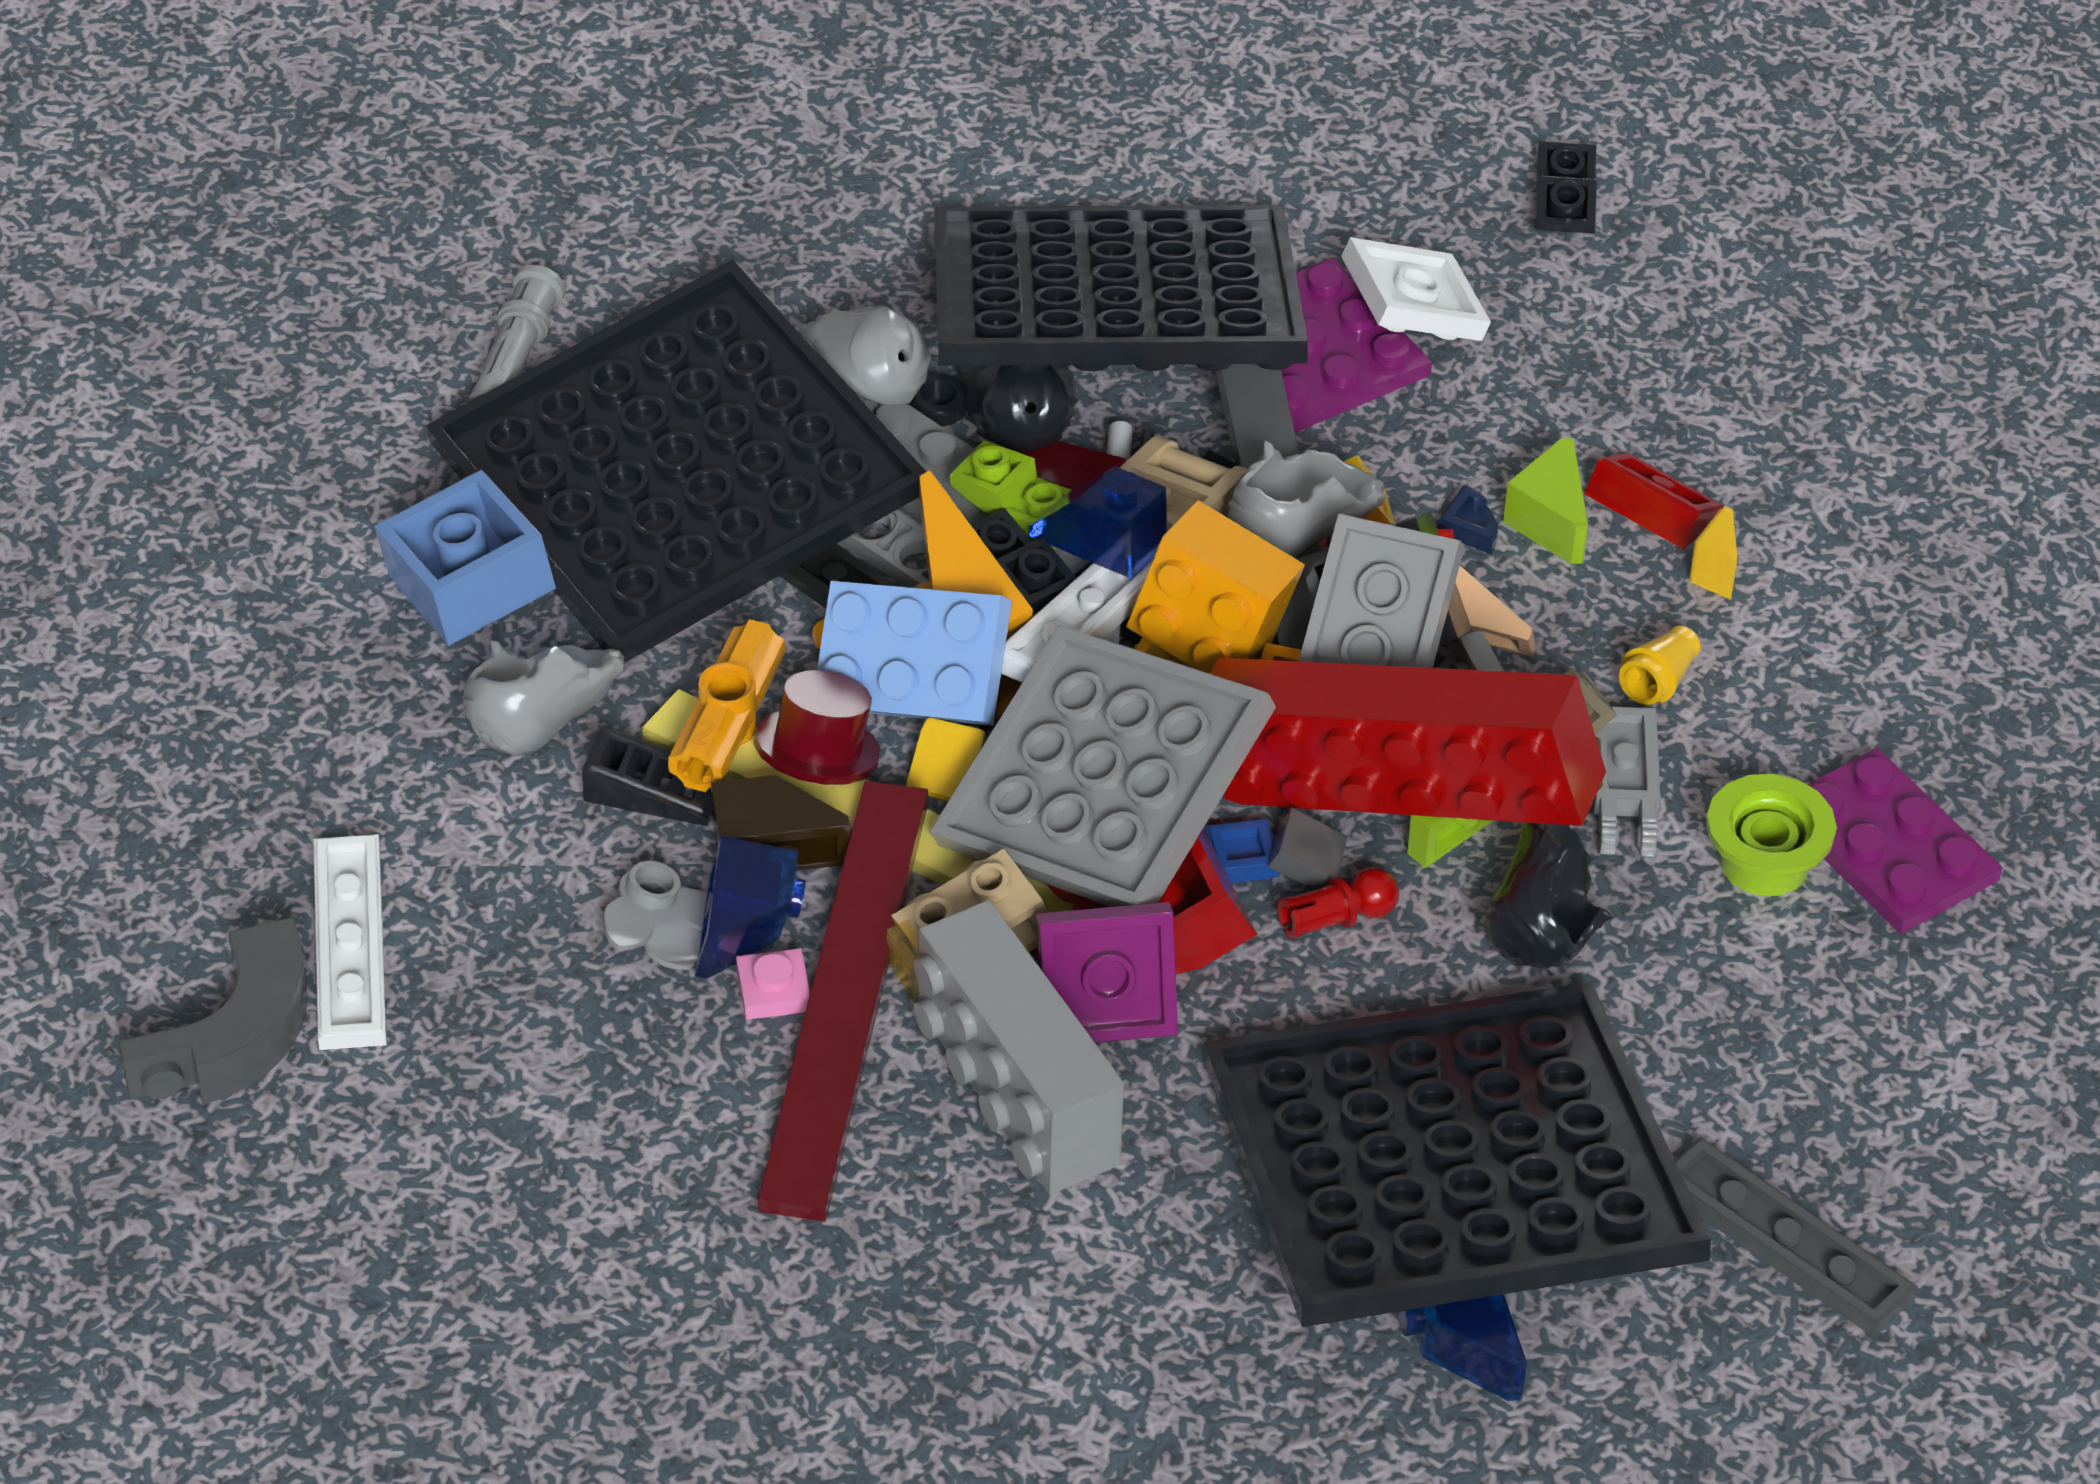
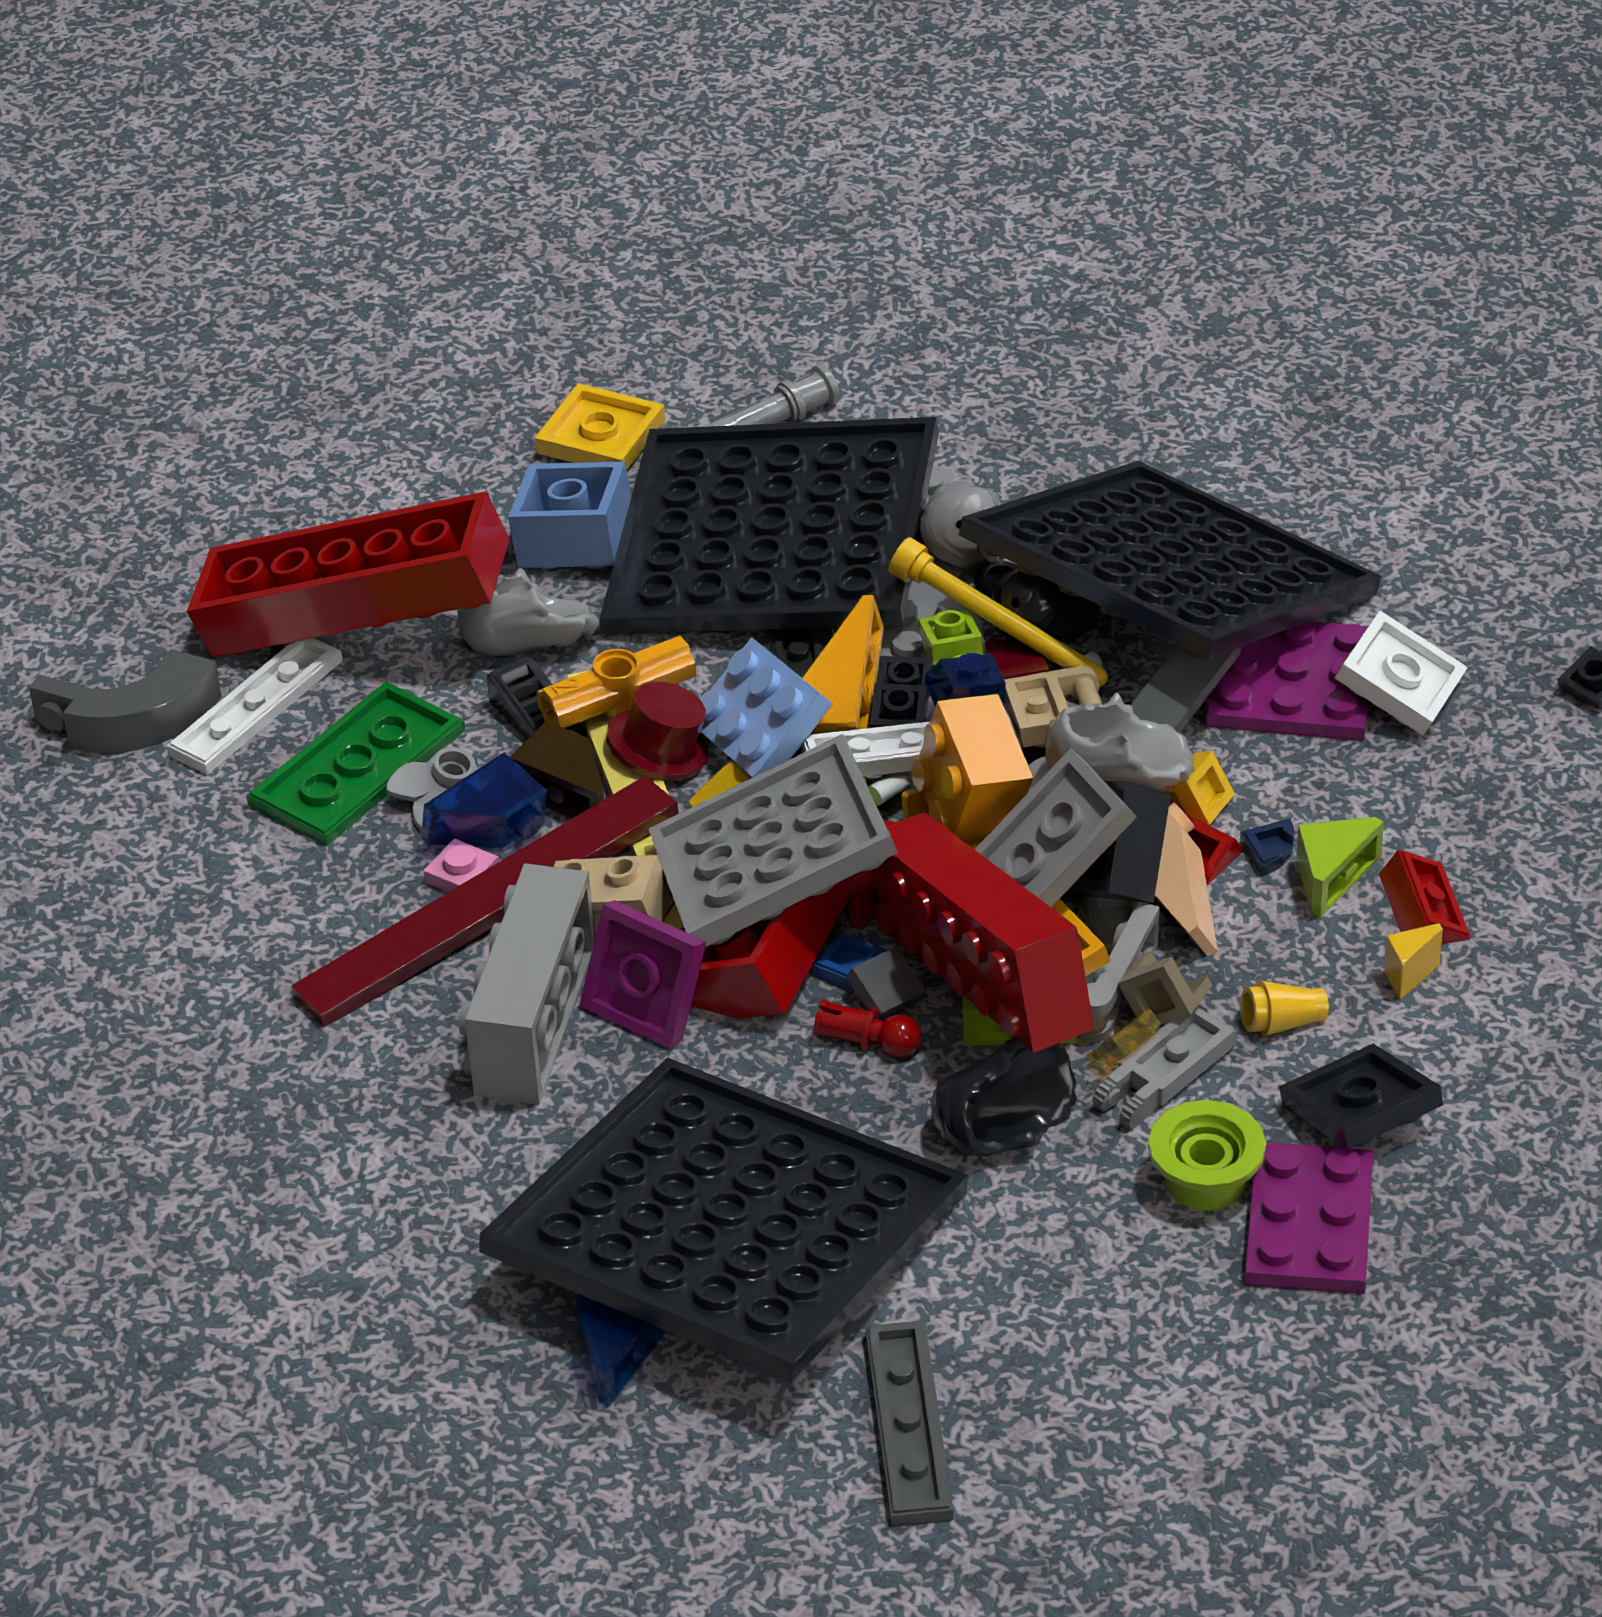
camera: 45 degrees right, 5 degrees down
(352, 744) = (349, 575): none -> red brick
(362, 453) = (599, 427): none -> yellow plate
(532, 941) = (351, 762): none -> green tile
(907, 420) = (914, 564): none -> yellow piece
(1822, 704) = (1361, 1096): none -> black plate

